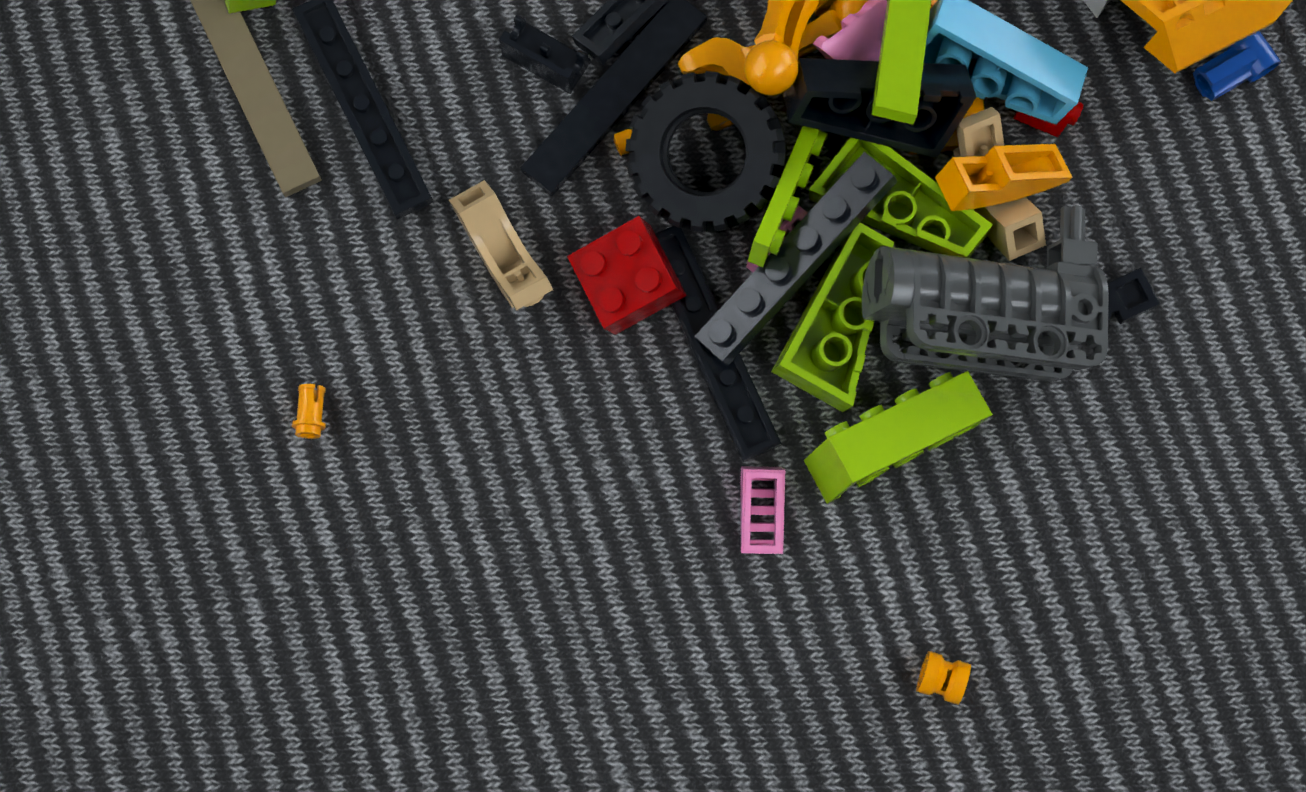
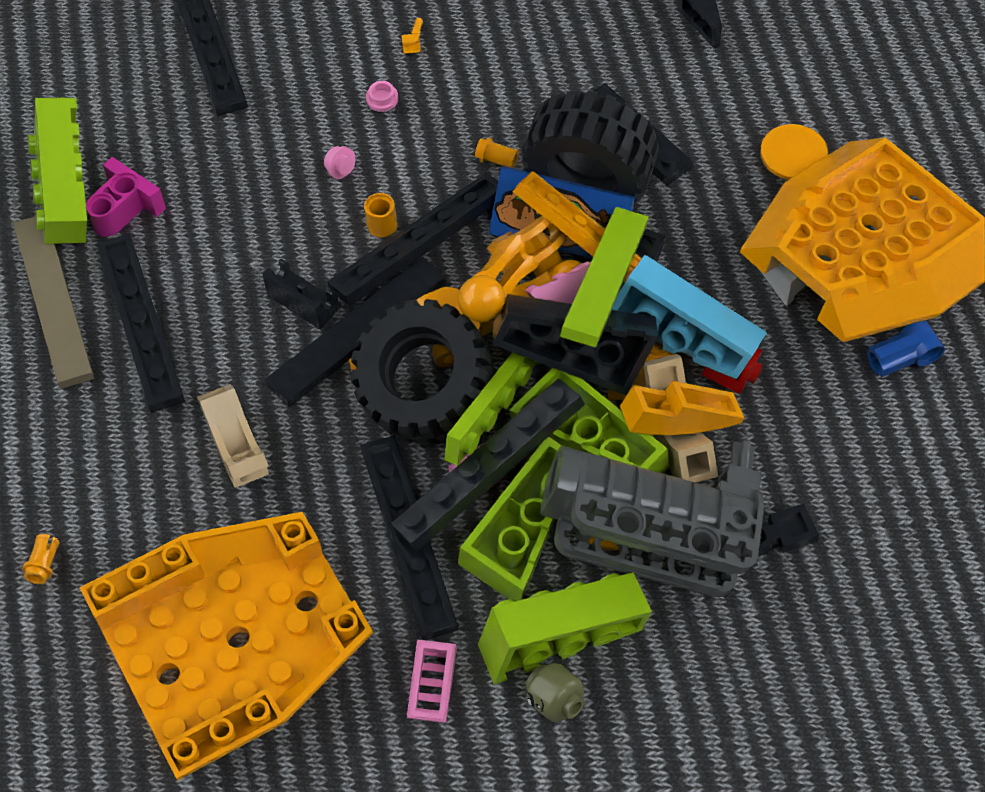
camera: 10 degrees right, 20 degrees down
(478, 460) = (187, 603): none -> light orange wedge
(626, 275) = (339, 469): red brick -> none
(897, 512) = (555, 692): none -> olive head

